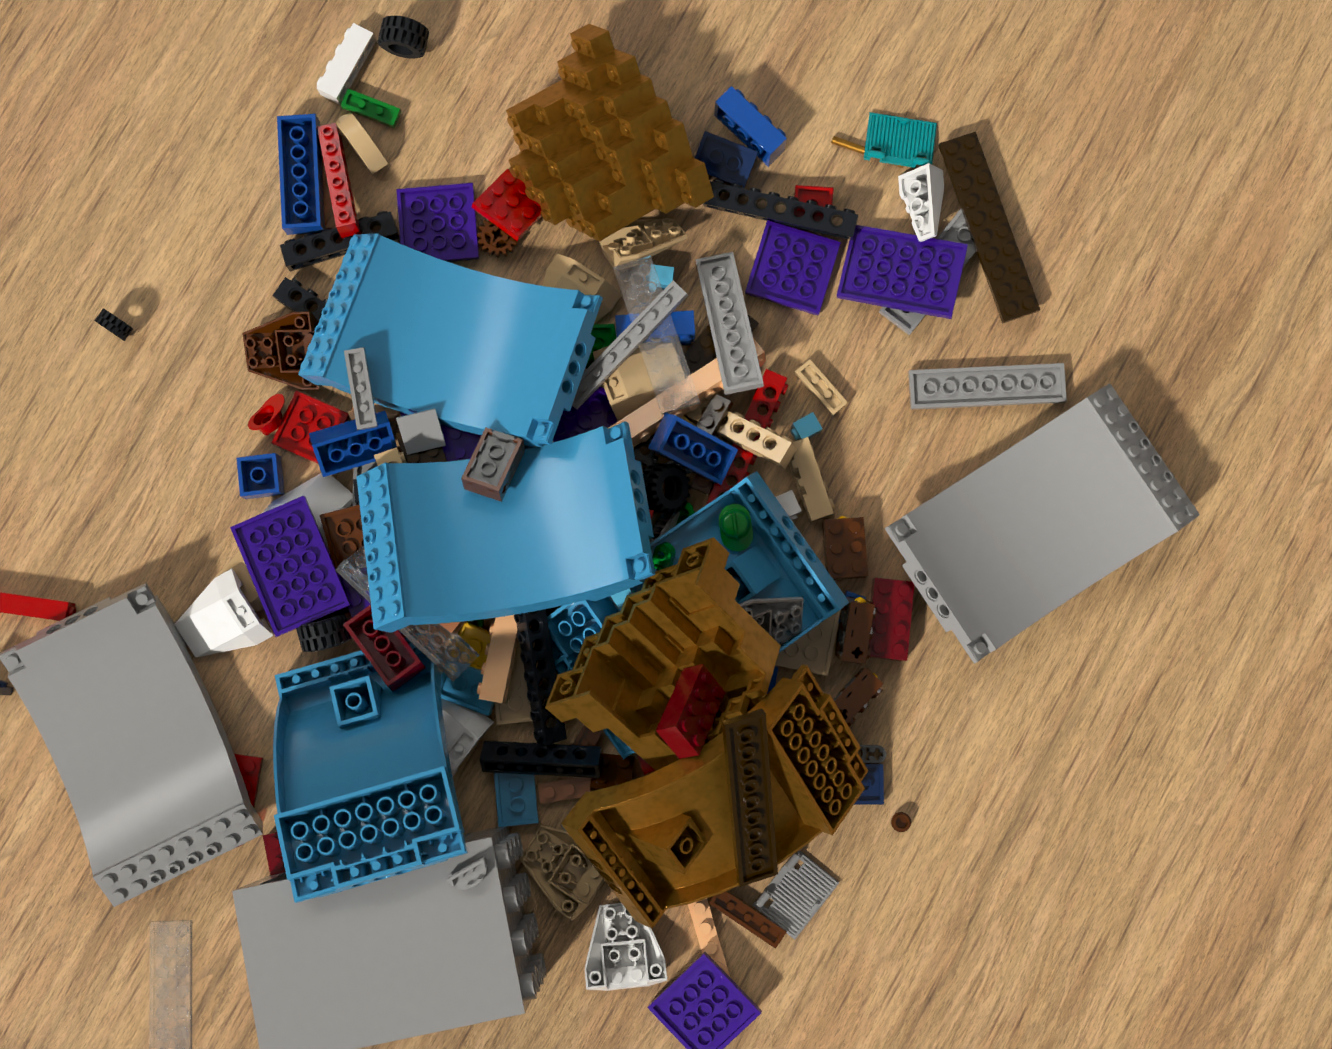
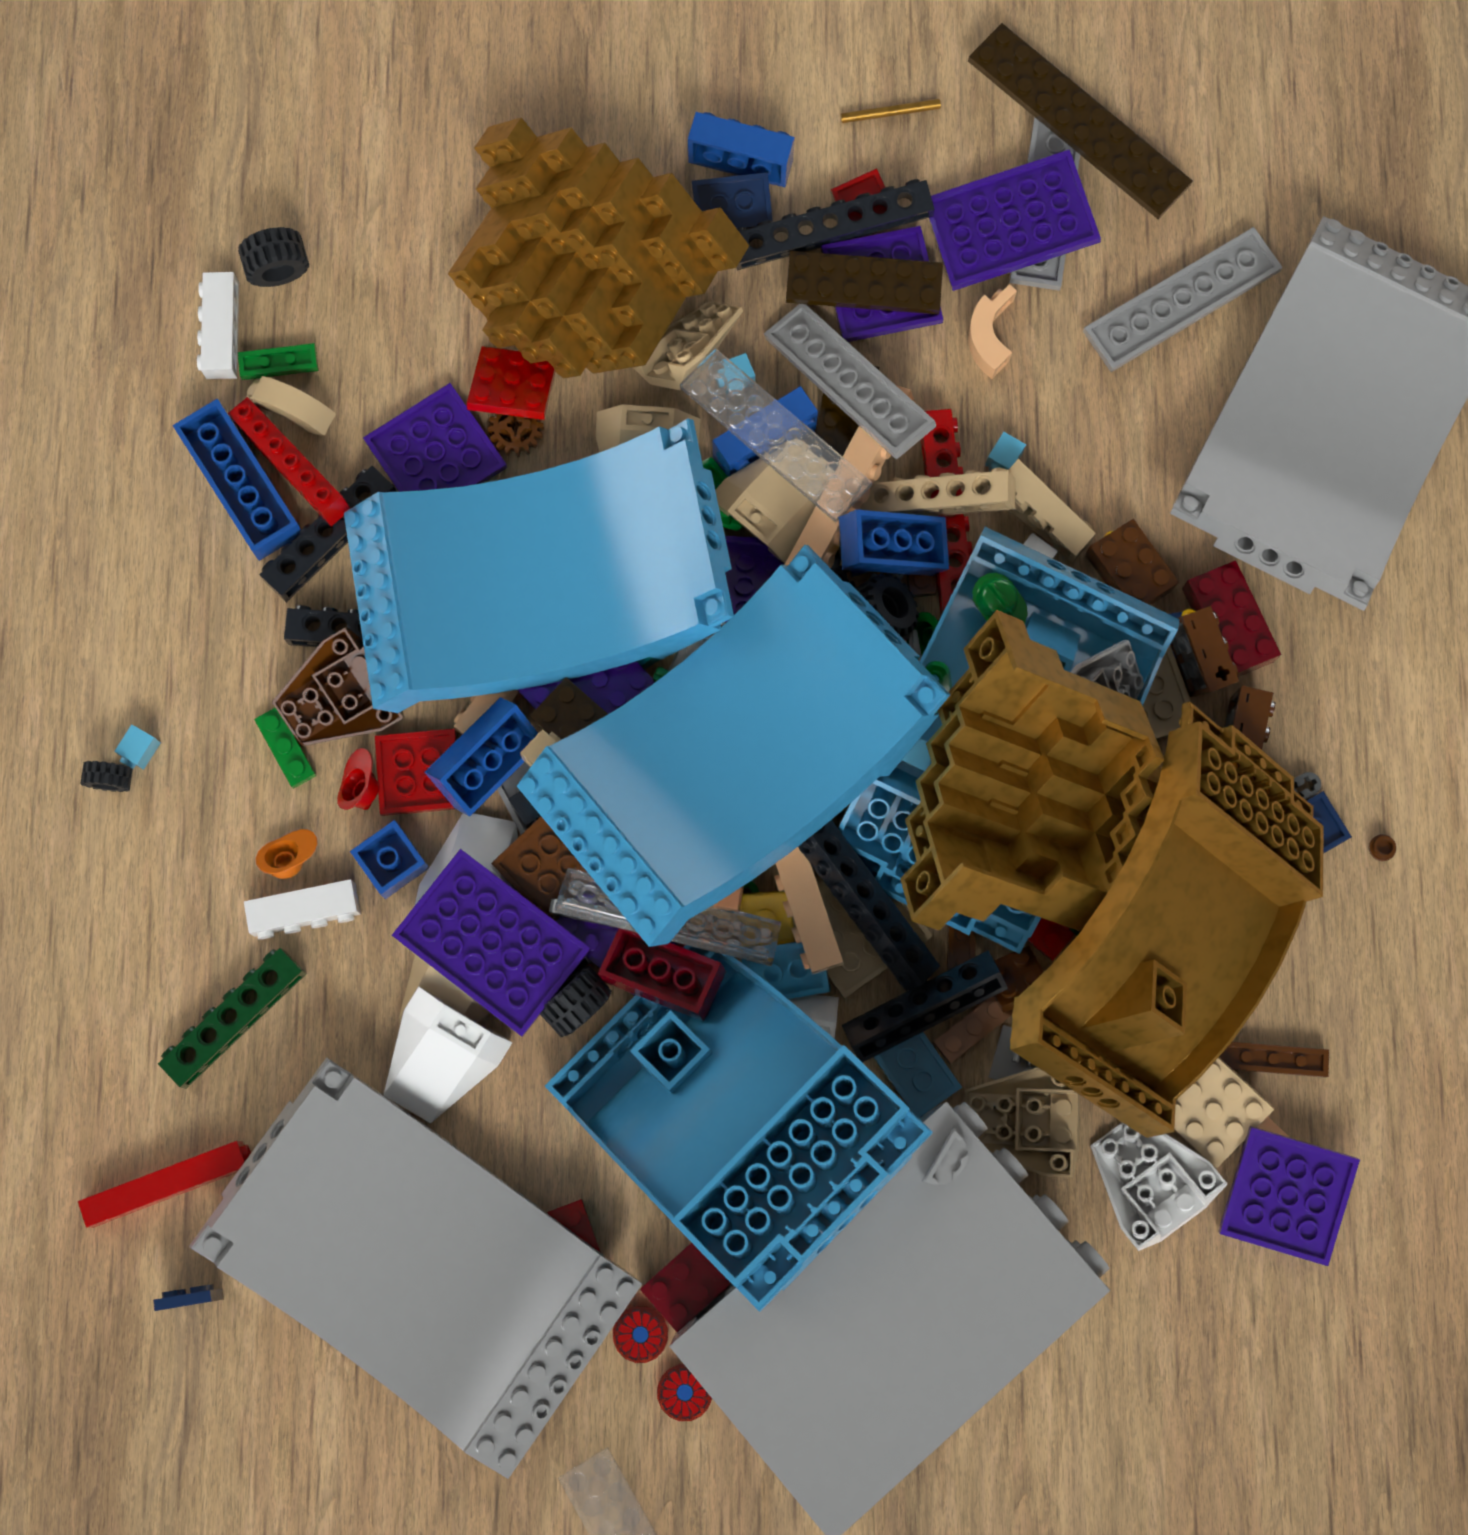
camera: 30 degrees left, 5 degrees down
(61, 540) = (174, 1059): none -> dark green brick
(143, 316) = (136, 748): none -> medium azure brick
(190, 476) = (302, 908): none -> white brick
(198, 437) = (286, 855): none -> orange piece
(236, 368) = (285, 748): none -> green plate
(250, 862) = (640, 1334): none -> tile
(360, 388) = (463, 679): light grey plate -> none
(421, 431) = (561, 693): light grey piece -> none
(493, 464) = (676, 679): piece -> none
(628, 341) = (751, 451): light grey plate -> none
(690, 711) = (1087, 829): dark red brick -> none
(691, 931) = (1218, 1112): none -> tan plate
(714, 414) = (895, 489): dark brown plate -> none
(750, 796) = (1214, 891): dark brown plate -> none
(780, 261) = (864, 282): none -> dark brown plate
(796, 894) = (1312, 1001): light grey window -> none
(821, 387) = (994, 401): tan plate -> none
(836, 345) = (984, 345): none -> light nougat arch
(899, 141) = (922, 81): teal window -> none
(923, 196) = (986, 127): white wedge -> none

